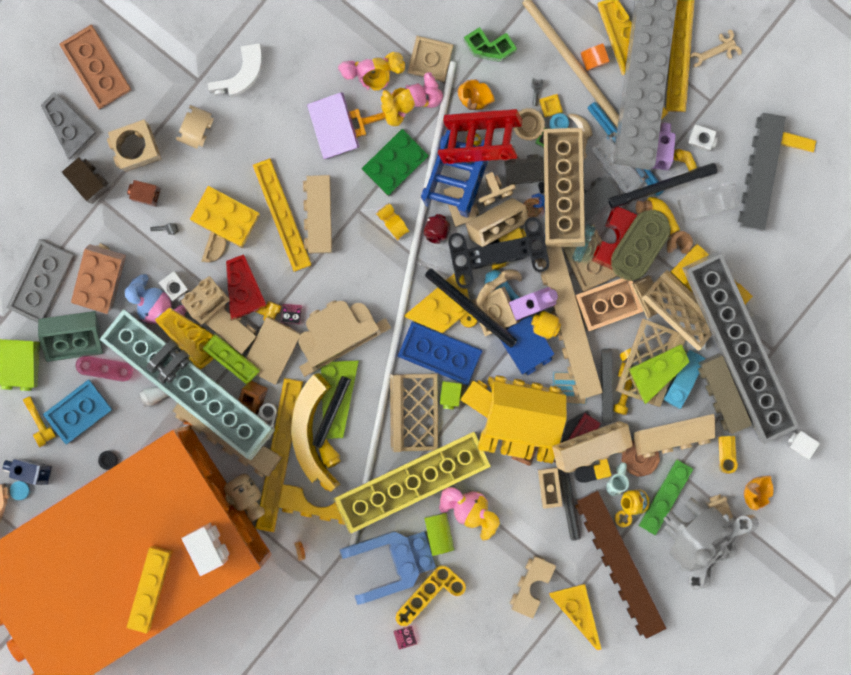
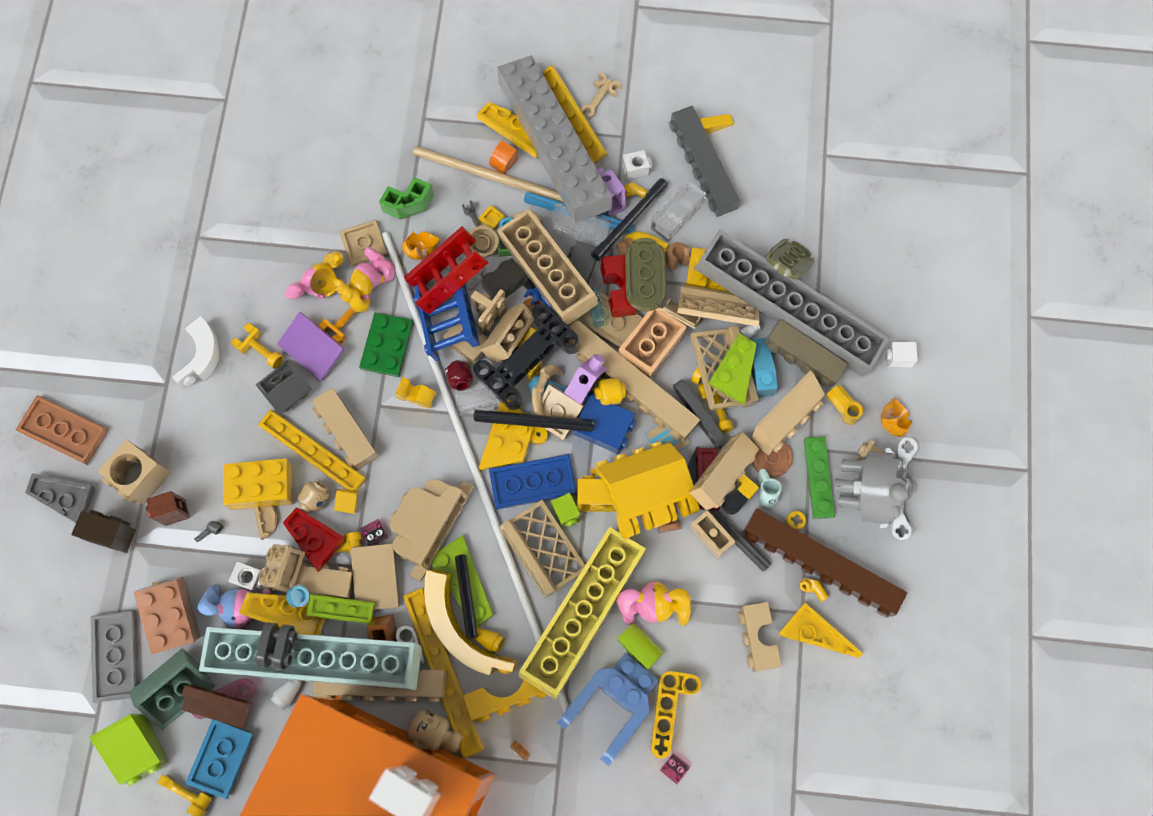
camera: 30 degrees left, 15 degrees down
(97, 372) = (216, 705): none -> reddish brown panel
(194, 127) = (182, 422): tan brick -> none
(205, 331) = (297, 596): none -> medium azure tile
(262, 254) = (313, 496): none -> tan head
(285, 274) = (346, 501): none -> yellow tile
(290, 146) = (283, 387): none -> dark grey slope
(297, 116) = (273, 359): none -> yellow bar
(601, 576) = (813, 586): none -> yellow arm
(635, 502) = (796, 497): yellow head -> none
(767, 309) = (790, 258): none -> olive tile

